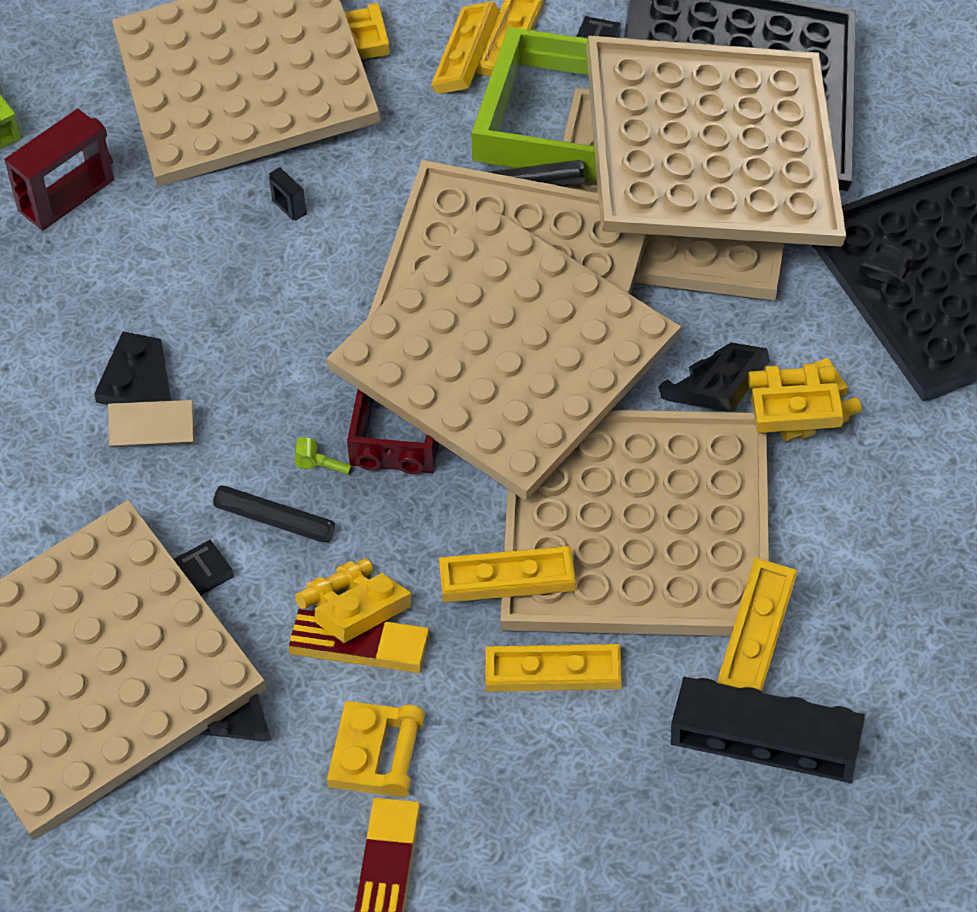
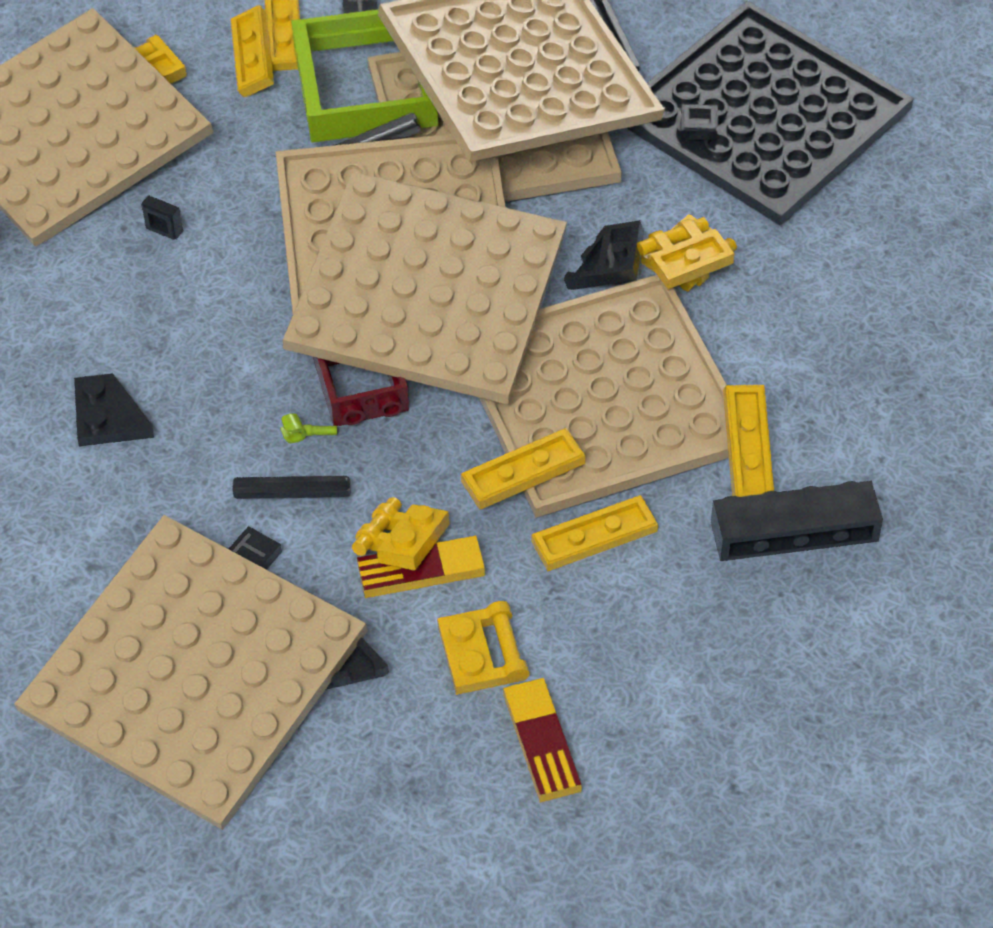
camera: 25 degrees left, 0 degrees up
(151, 423) = (143, 446): tan tile -> none

